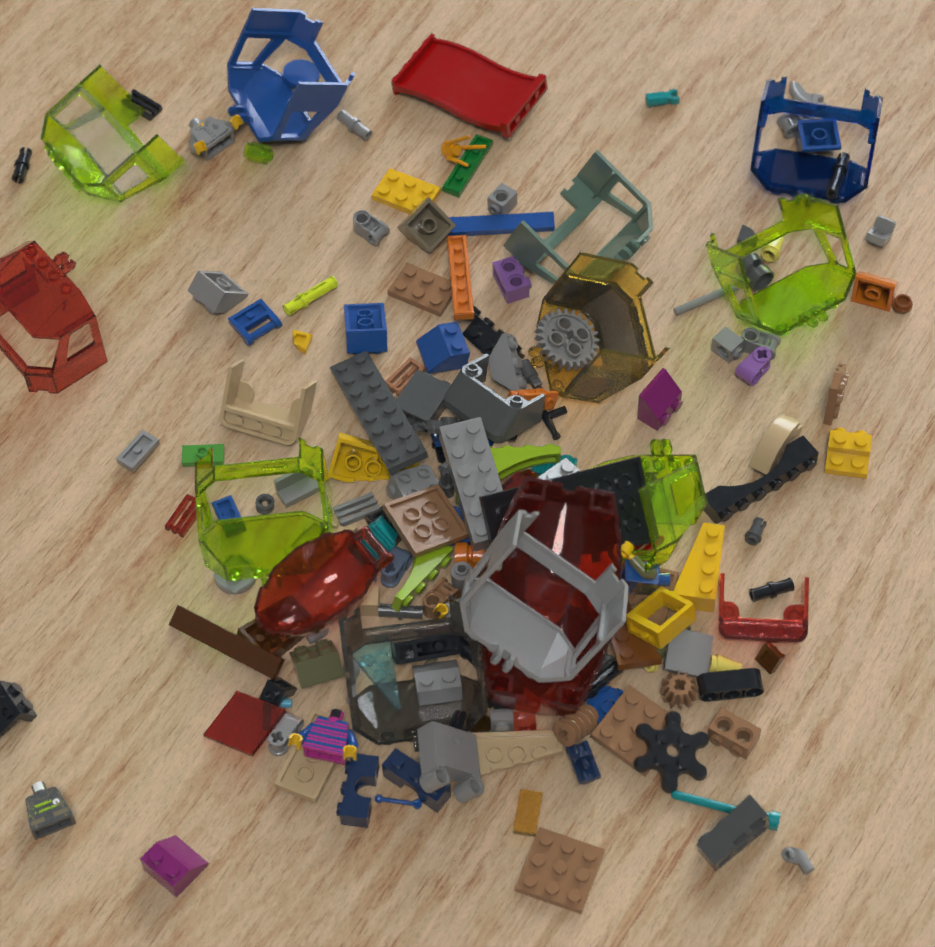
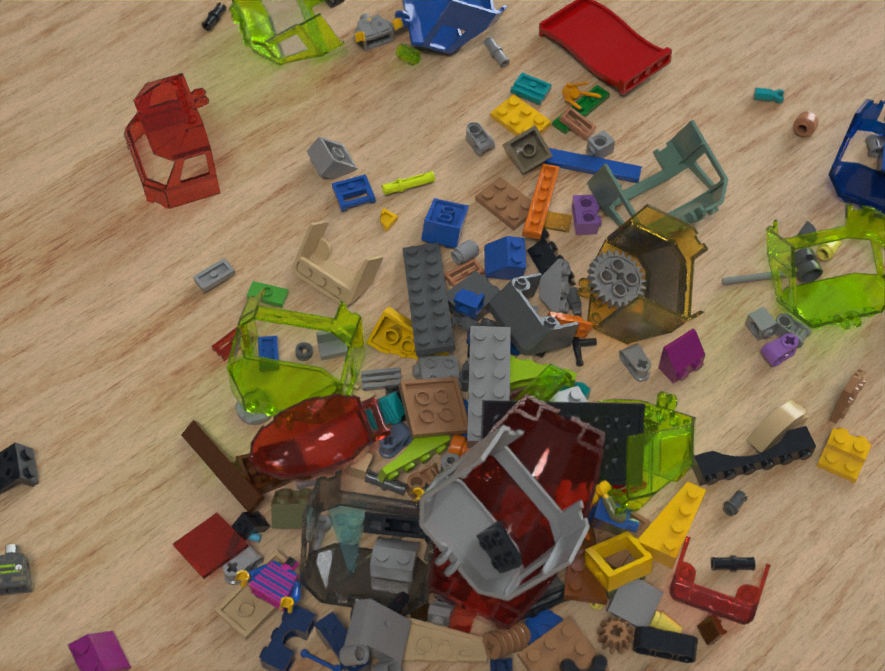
camera: 15 degrees right, 0 degrees up
(398, 353) = (465, 252): none -> light grey brick
(406, 156) = (531, 88): none -> teal plate
(423, 405) = (468, 303): none -> blue brick
(469, 184) = (576, 125): none -> nougat tile
(485, 294) = (558, 221): none -> clear yellow tile
(535, 463) = (546, 383): none -> clear neon green tile
(547, 632) = (499, 548): none -> black bracket
(613, 419) = (636, 362): none -> light grey piece
(710, 120) = (805, 124): none -> nougat head

